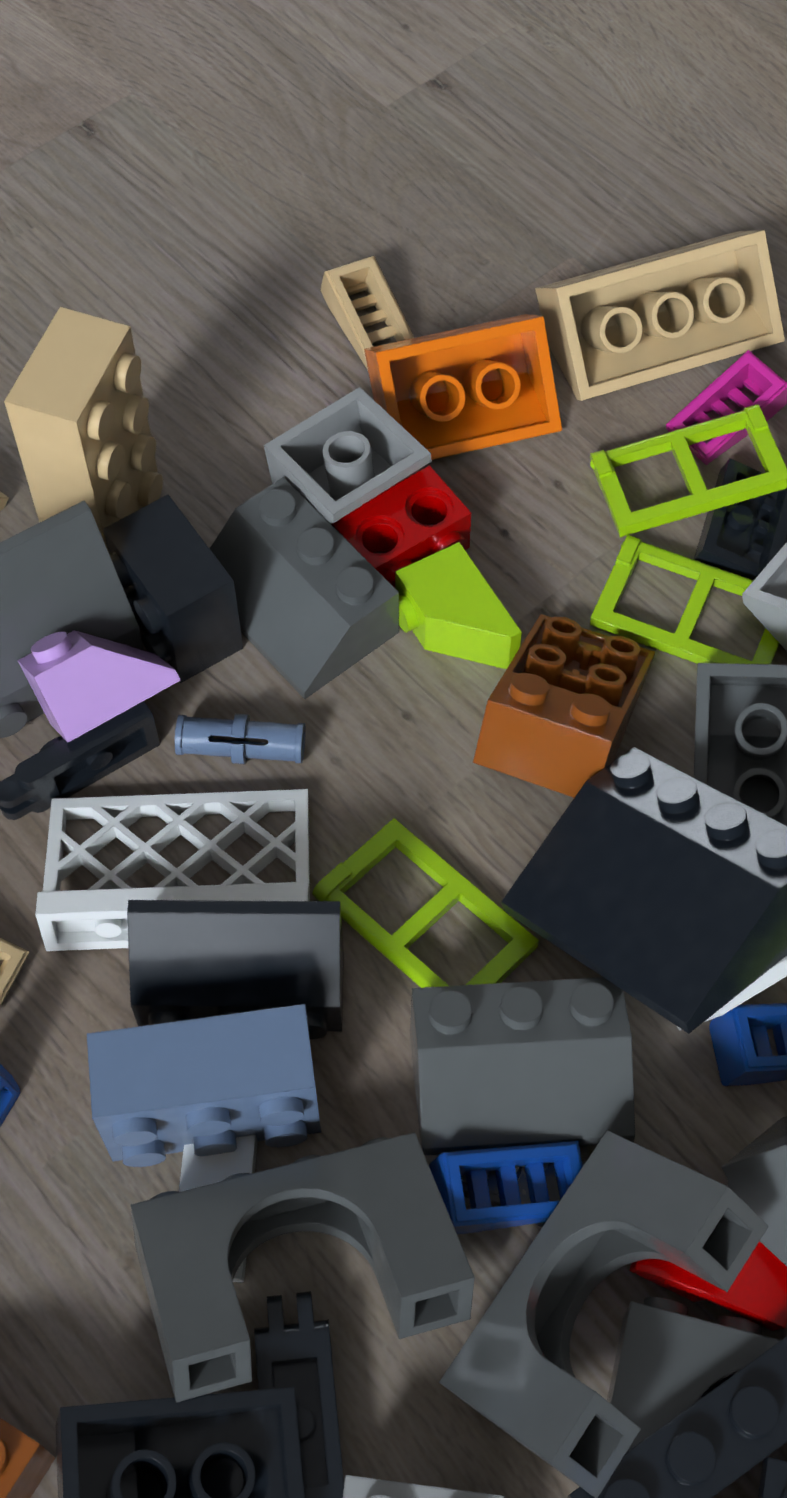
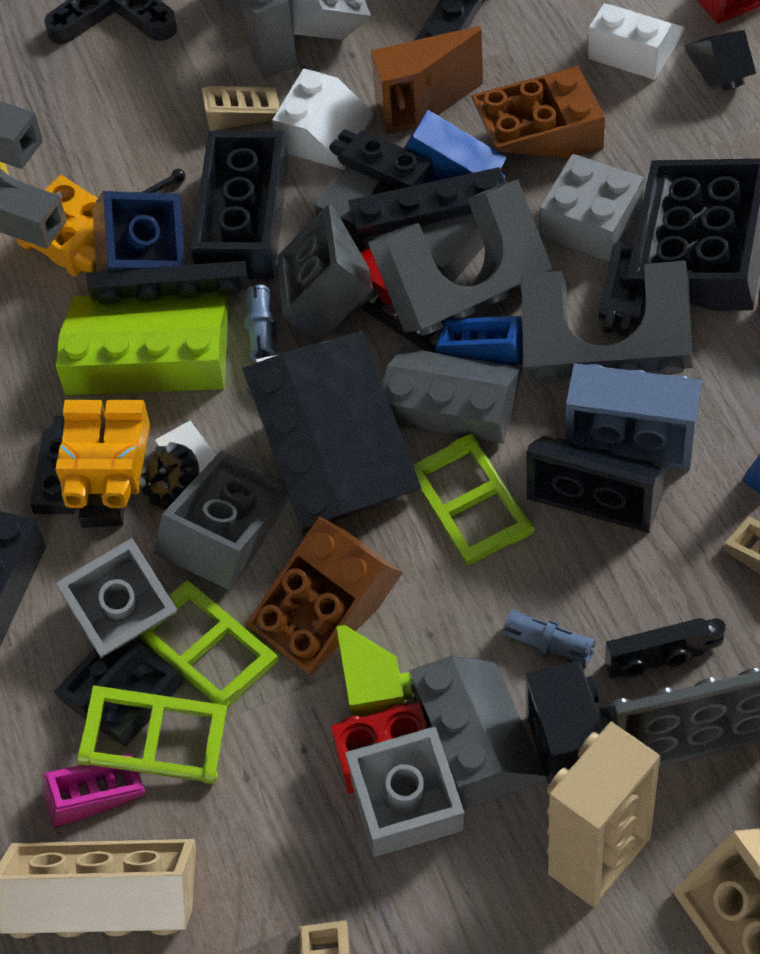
camera: 155 degrees left, 5 degrees down
(91, 679) = (638, 665): lavender slope -> none
(99, 915) = (620, 530): white fence -> none
(469, 385) = (282, 866): orange slope -> none

